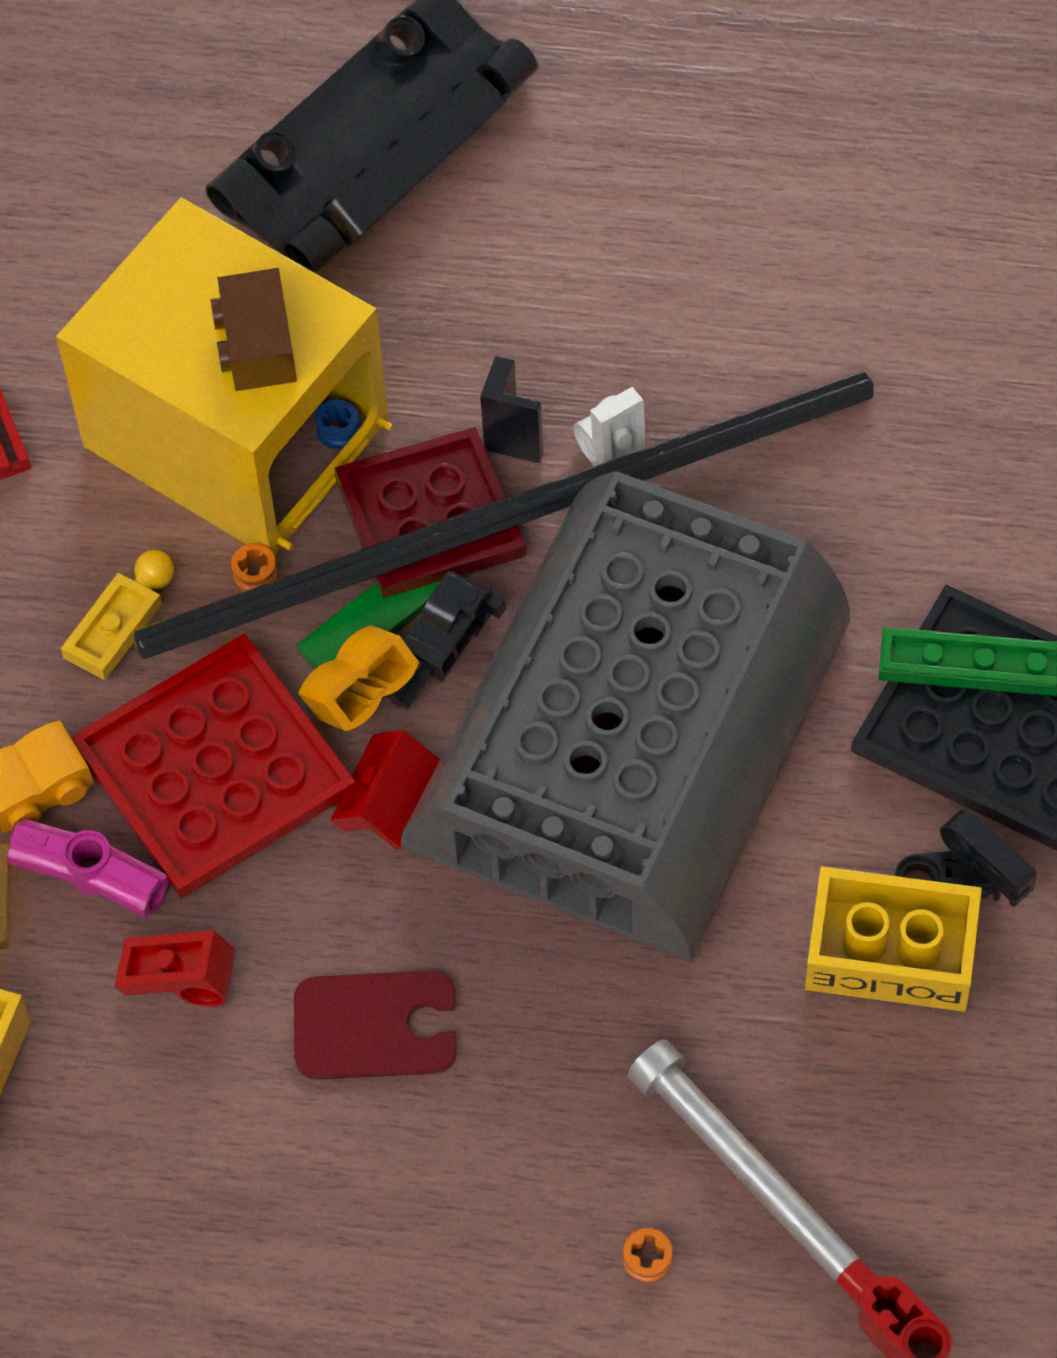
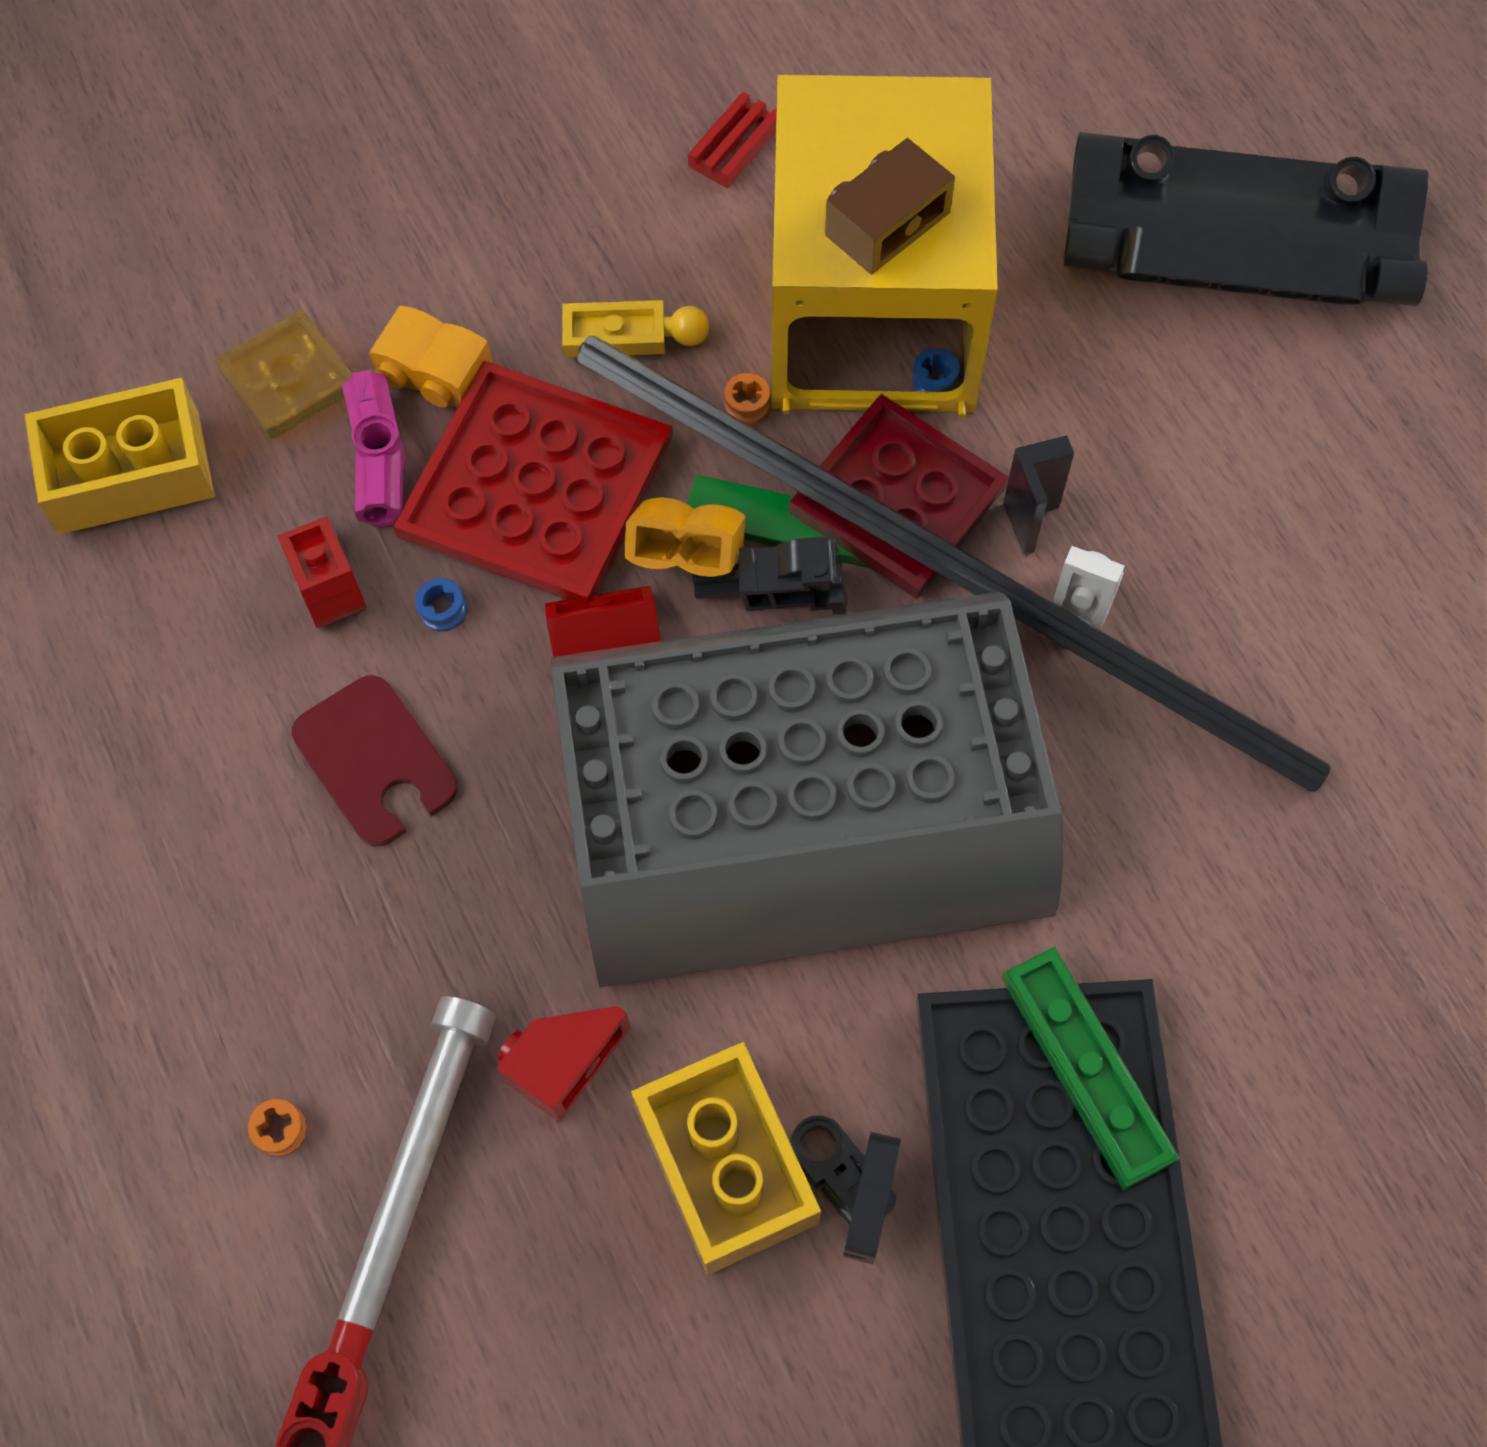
camera: 55 degrees right, 5 degrees up
(265, 884) = (447, 619): none -> blue bush
(734, 1017) = (560, 1056): none -> red slope

